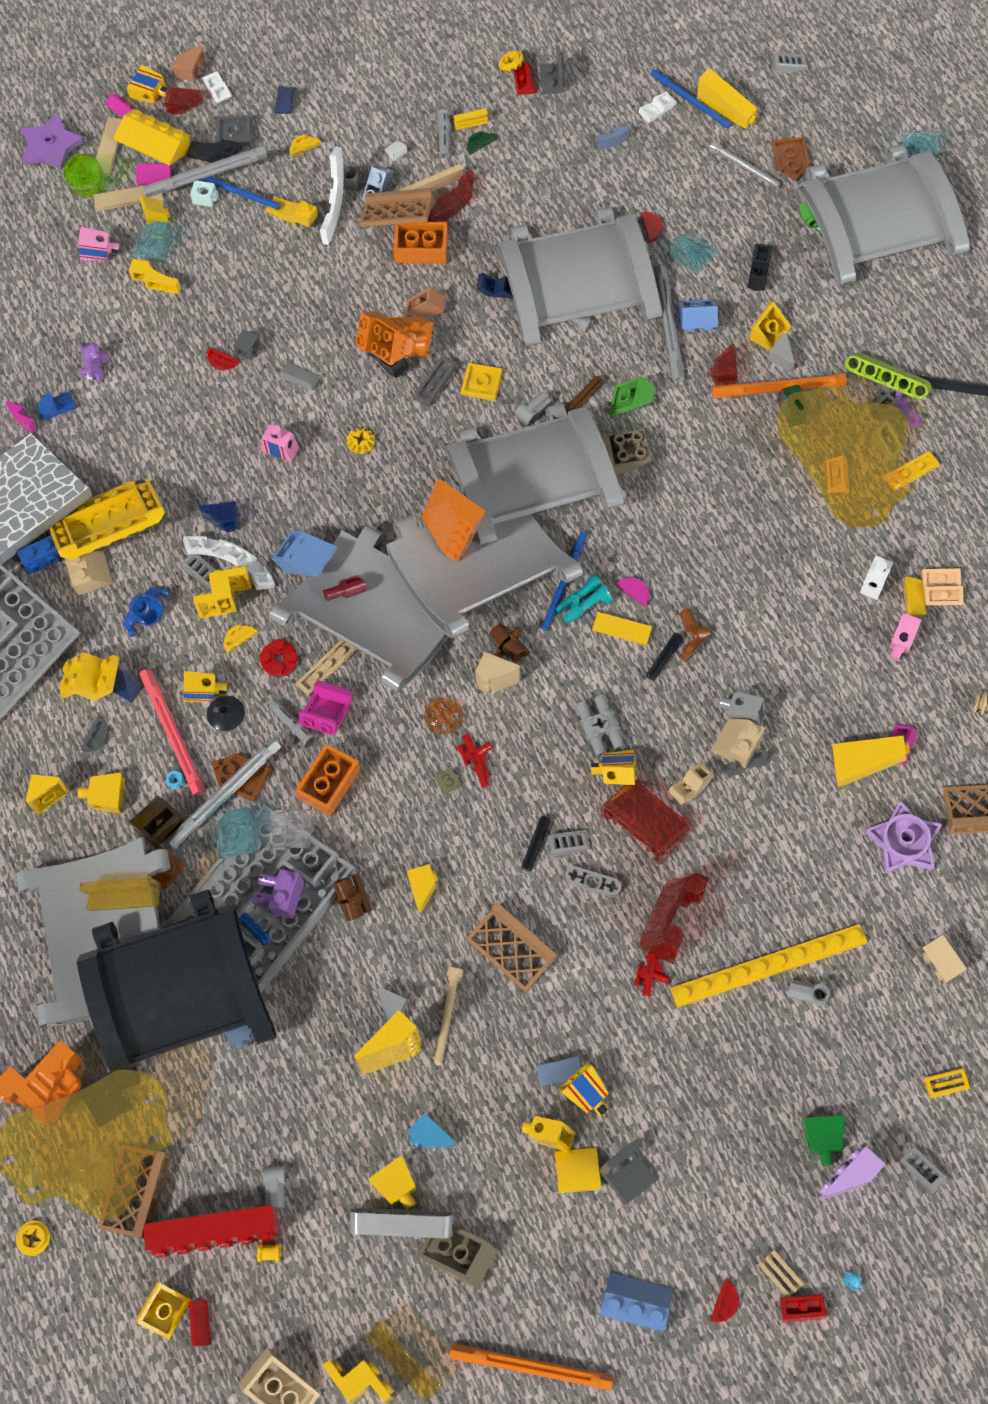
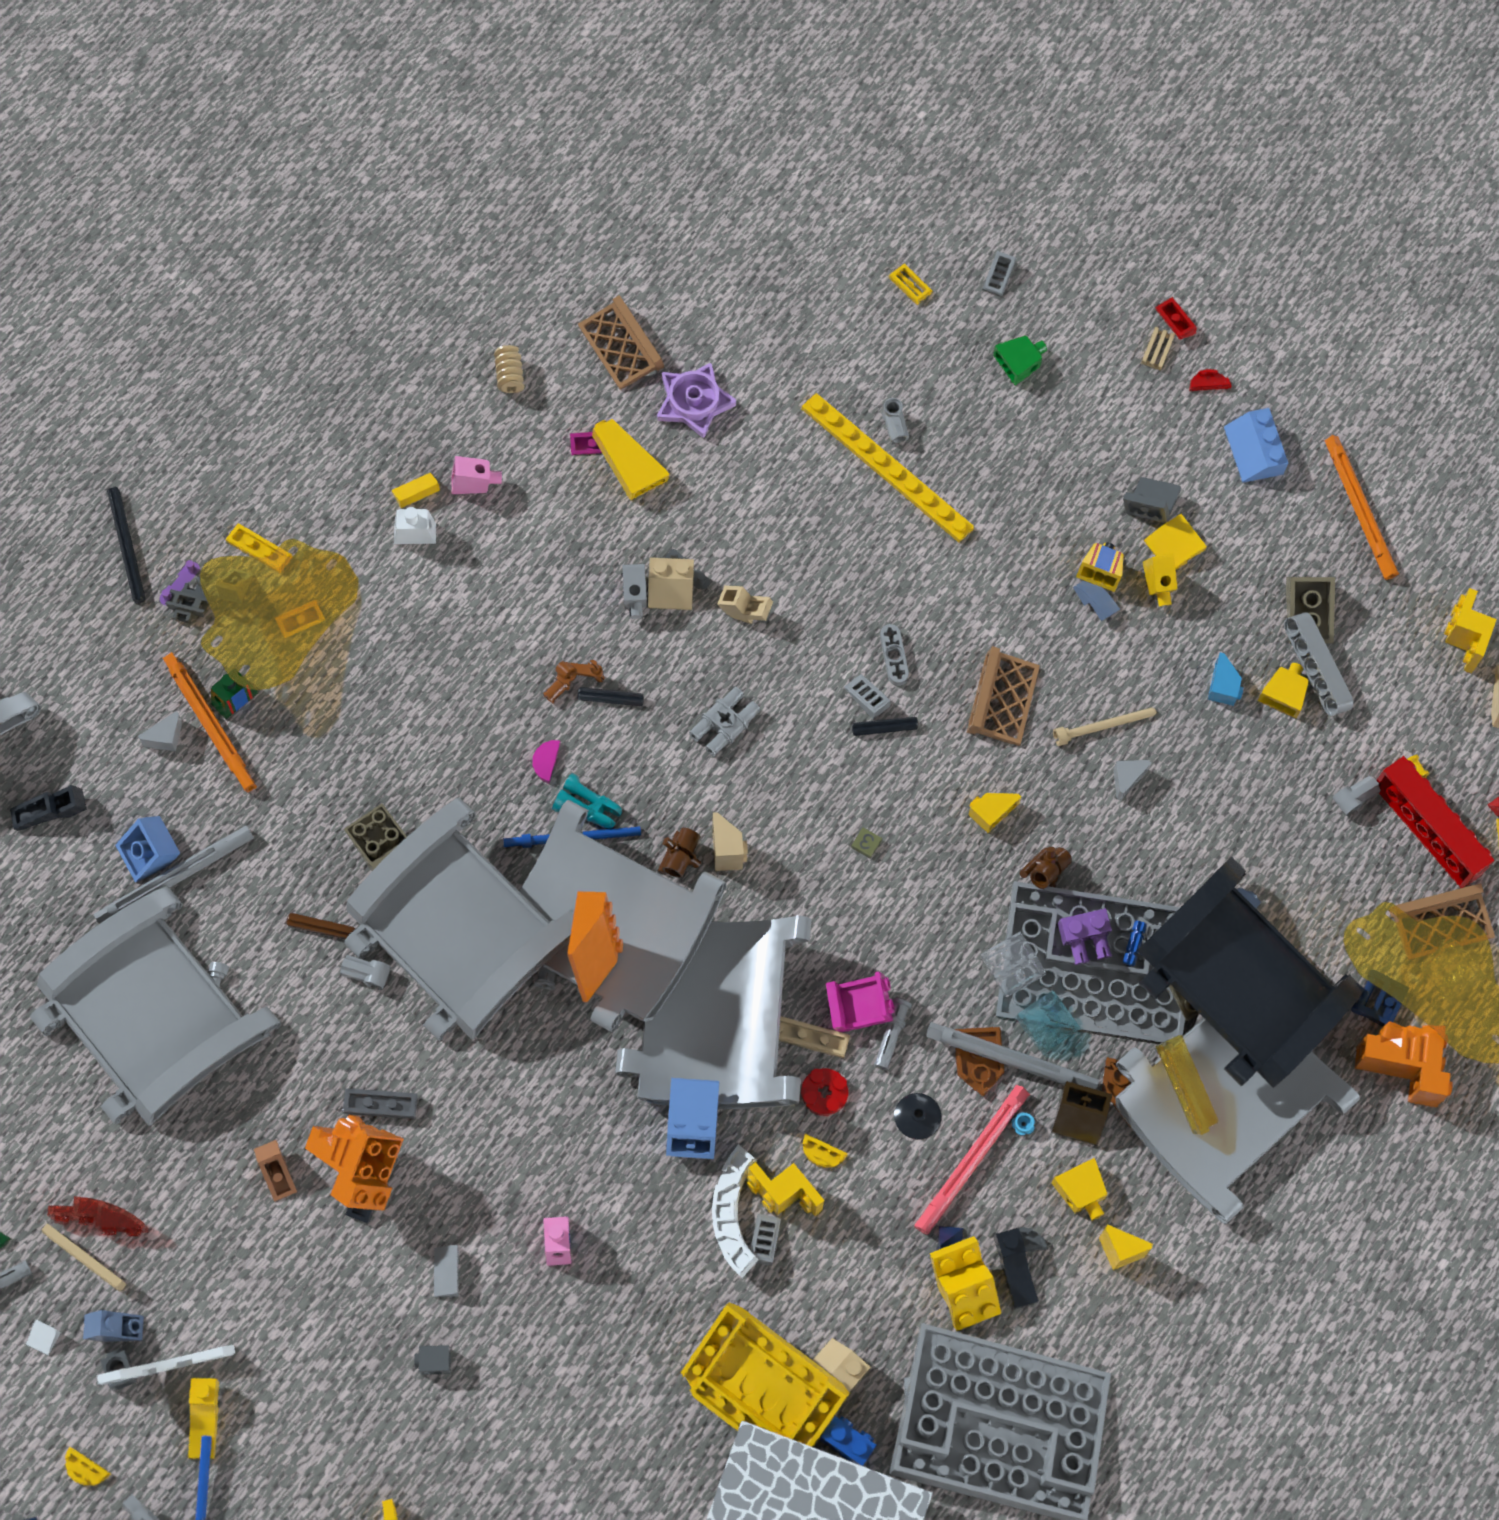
camera: 125 degrees left, 0 degrees up
(81, 719) = (1015, 1267): none -> black slope
(145, 609) = (848, 1274): blue piece -> none
(201, 687) = (909, 1150): yellow torso -> none
(221, 360) = (469, 1386): red tile -> none
(222, 515) = (684, 1252): clear blue slope -> none
(327, 780) = (937, 956): orange brick -> none
(346, 588) = (712, 1046): dark red arm -> none
(364, 446) = (511, 1155): yellow gear -> none
(390, 1045) = (1179, 741): yellow slope -> none
(391, 201) = (131, 1274): medium nougat fence -> none
(403, 1362) = (1425, 610): clear yellow panel -> none
(421, 242) = (186, 1219): orange brick -> none
(443, 716) = (796, 884): clear orange piece -> none
(477, 757) = (823, 826): red piece -> none
(481, 381) = (353, 1051): yellow tile -> none
(494, 288) = (209, 1099): dark blue slope -> none
(616, 768) = (766, 678): yellow torso -> none
(622, 628) = (599, 752): yellow tile -> none
(631, 395) = (302, 869): bright green slope -> none
(647, 819) = (804, 631): clear red windscreen -> none
(652, 225) = (35, 958): red tile -> none
(652, 971) = (950, 564): red piece -> none
(660, 936) = (894, 563): clear red windscreen -> none
(692, 252) = (56, 894): clear light blue slope -> none
(725, 367) = (209, 786): clear red slope -> none
(769, 327) = (134, 762): yellow slope -> none
(854, 1279) = (1128, 291): medium azure plate -> none
(862, 1169) = (1046, 319): lavender slope -> none
(879, 375) = (147, 611): lime beam -> none
(942, 587) = (390, 467): light nougat slope -> none
(944, 958) = (797, 321): tan brick -> none

